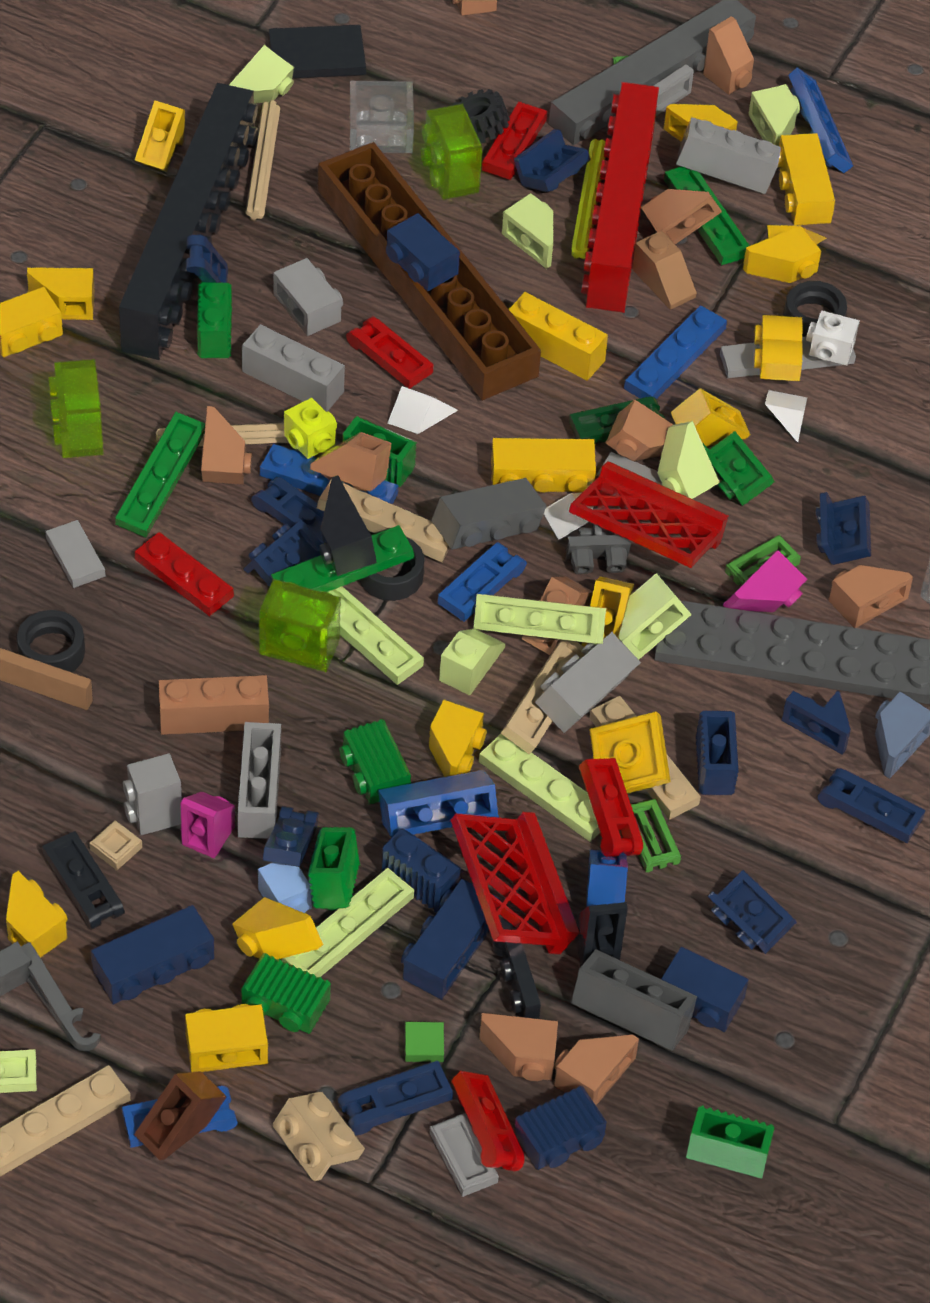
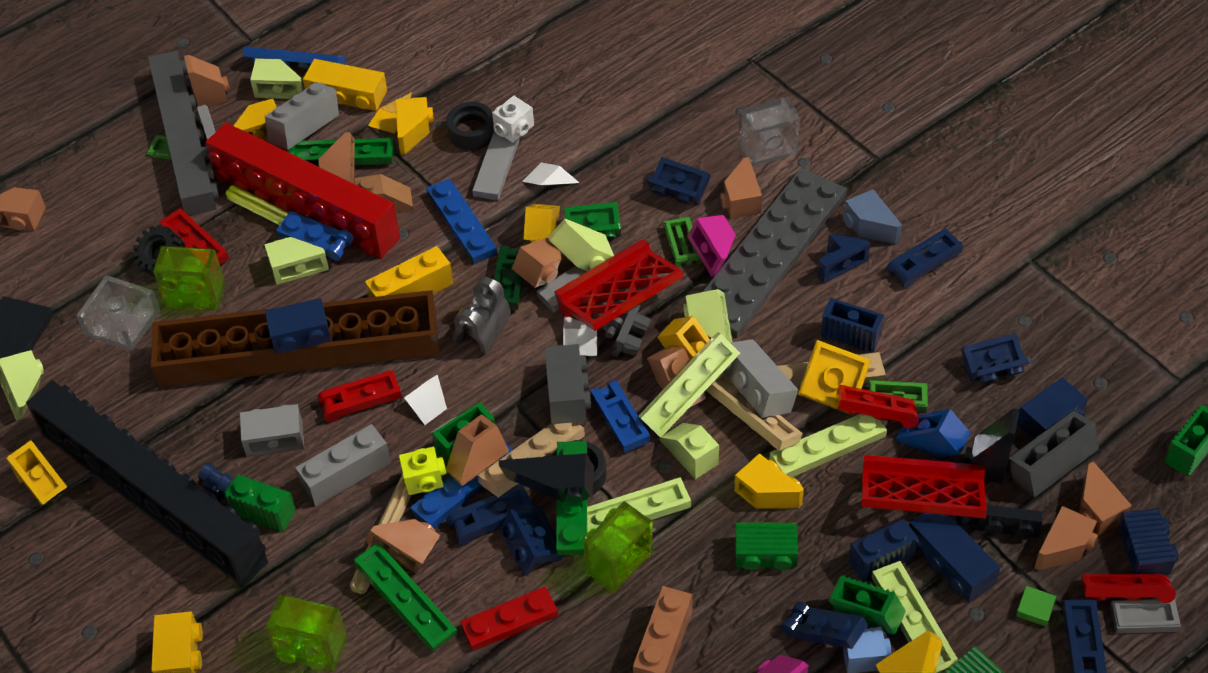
camera: 60 degrees left, 0 degrees up
(68, 287) = (159, 596): yellow slope -> none
(259, 780) = (756, 628): light grey brick -> none
(263, 160) = (135, 427): tan axle -> none
(434, 802) = (828, 515): blue brick -> none
(538, 414) = (485, 315): none -> flat silver piece
(546, 463) = (528, 336): yellow brick -> none
(549, 162) = (234, 225): dark blue bracket -> none
(571, 231) = (315, 233): none -> blue plate
(779, 348) = (502, 153): yellow brick -> none

